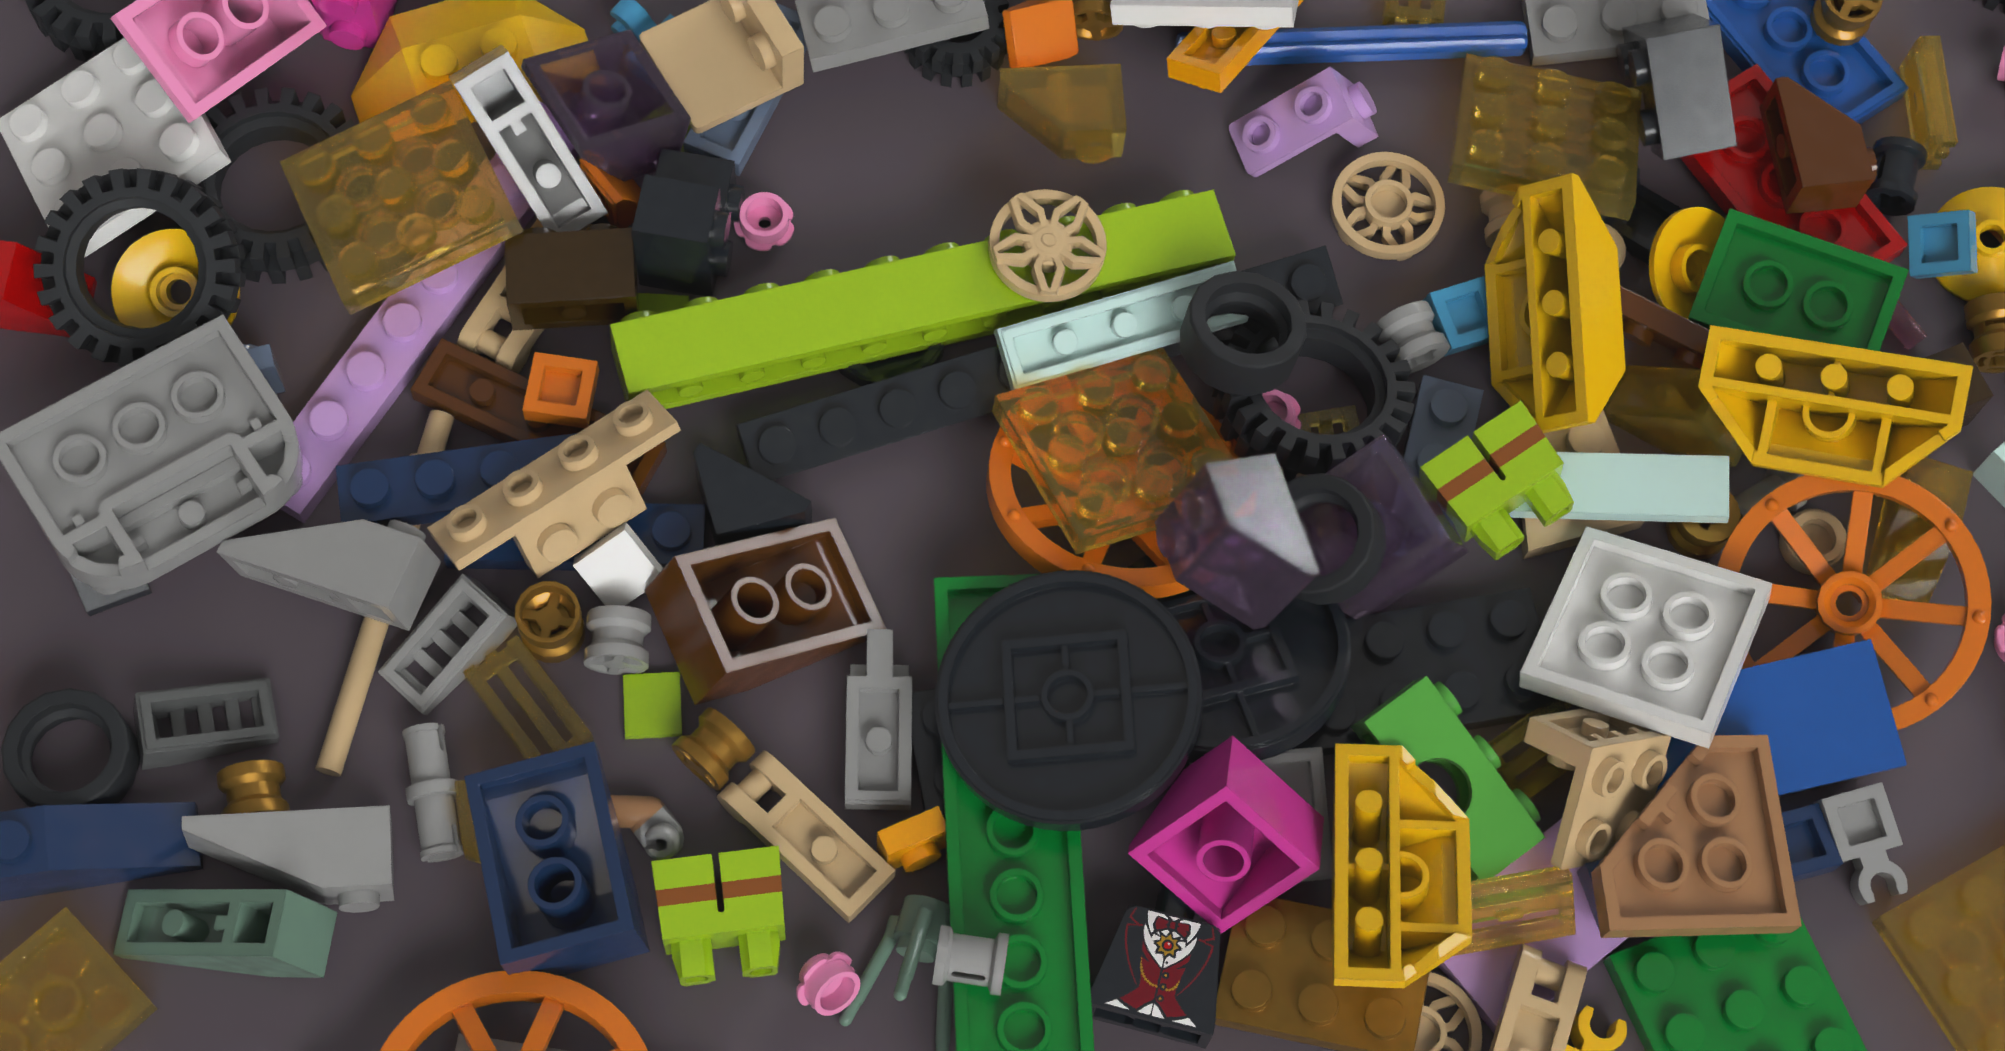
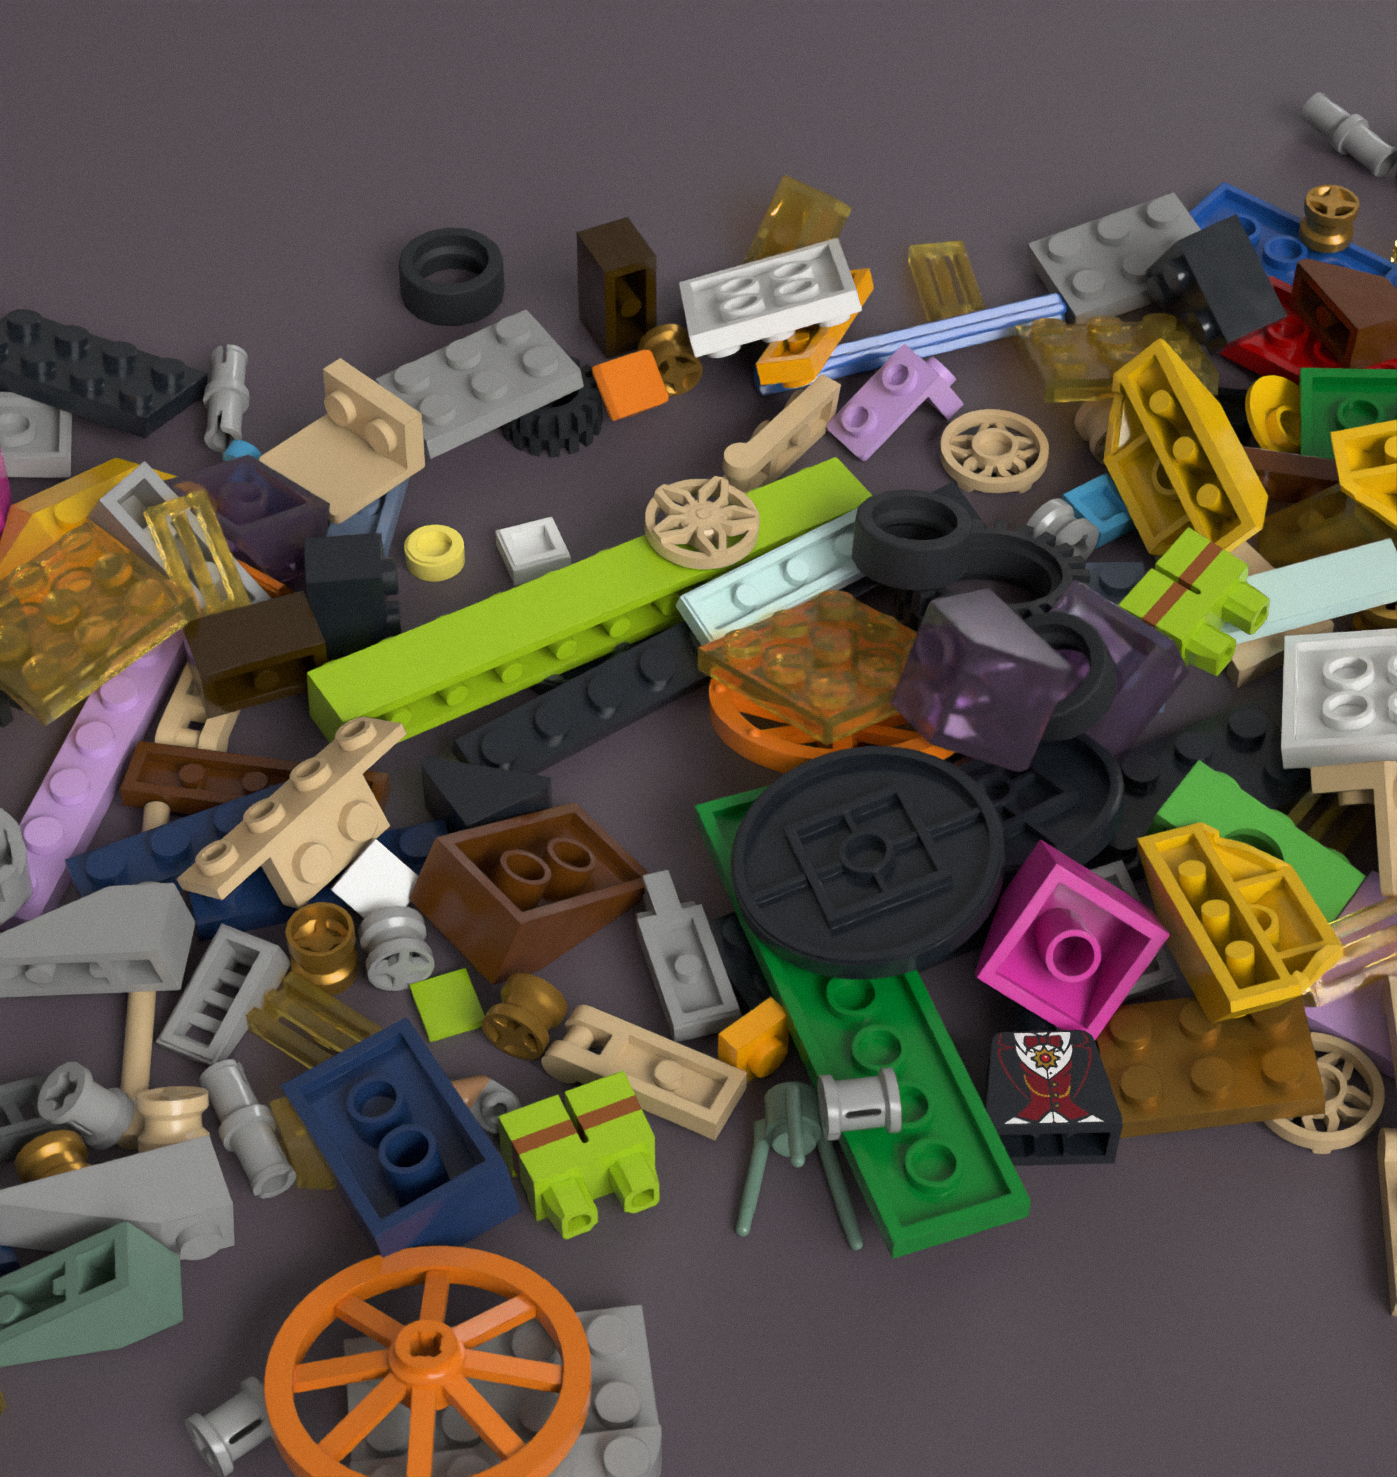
camera: 10 degrees left, 20 degrees down
(283, 729) = (85, 1105): none -> light grey bush
(365, 770) = (171, 1115): none -> tan wheel
(529, 110) = (217, 544): none -> clear yellow tile
(561, 390) = (272, 744): orange plate -> none
(765, 207) = (423, 586): bright pink plate -> none
(791, 175) = (434, 553): none -> light yellow tile
(828, 983) = (715, 1193): bright pink plate -> none
(887, 202) = (532, 549): none -> white tile
(1068, 108) = (671, 436): clear yellow slope -> none
(1168, 142) = (783, 439): none -> tan plate

